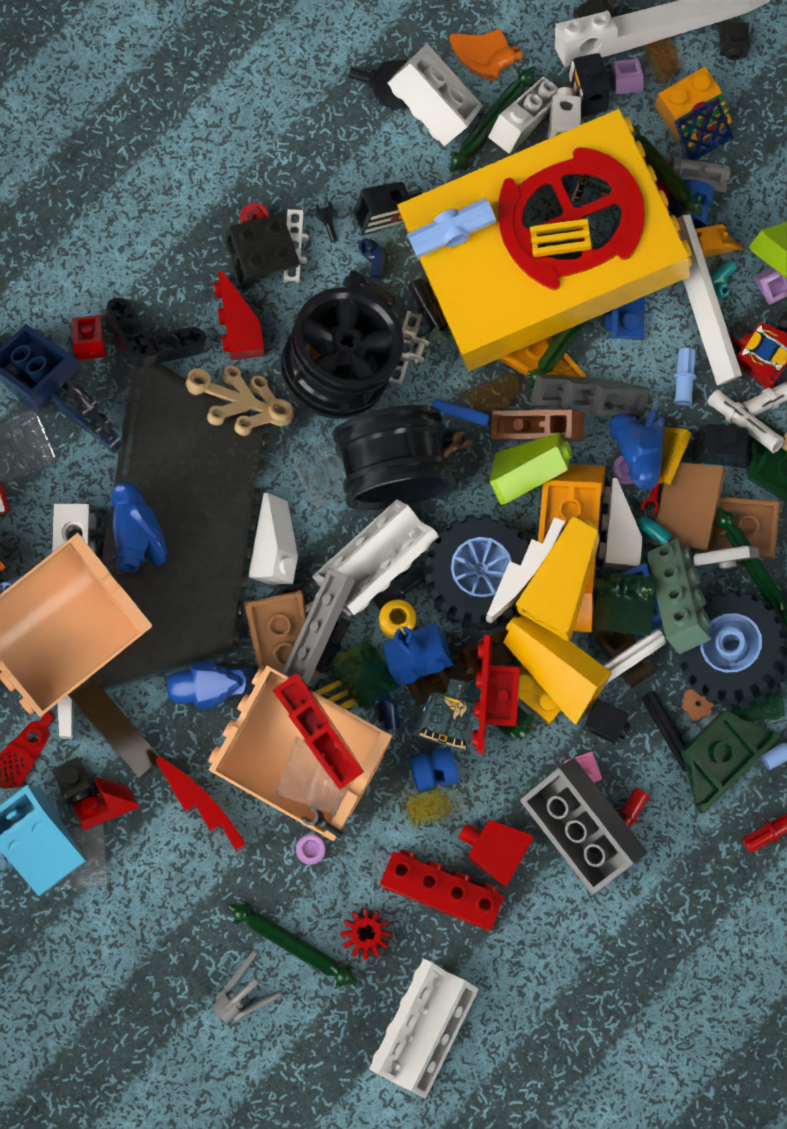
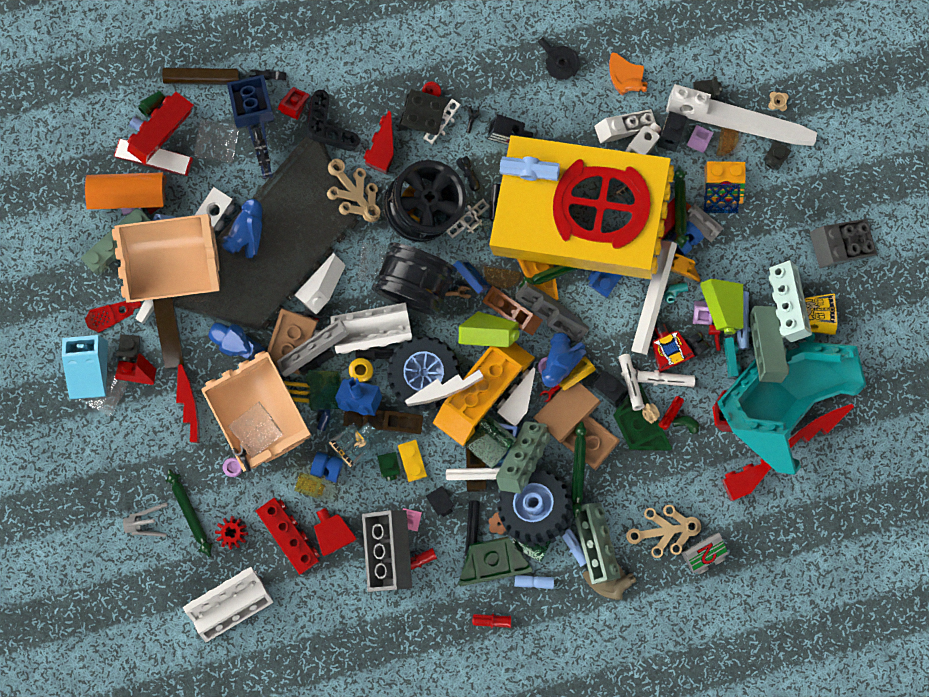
camera: 40 degrees right, 5 degrees up
(40, 317) = (269, 74): none -> black piece
(318, 731) = (270, 406): red slope -> none
(376, 255) = (485, 154): dark blue arm -> none
(435, 95) = (578, 83): white slope -> none
(484, 127) = (592, 120): dark green wheel -> none
(498, 695) = (386, 449): red bracket -> none
(558, 666) = (431, 452): yellow slope -> none
(560, 227) = (567, 212): yellow tile -> none
(561, 580) = (462, 406): yellow slope -> none
(648, 526) = (537, 408): teal arm -> none
(685, 376) = (615, 334): light blue axle -> none
(727, 557) = (565, 453): light grey plate -> none

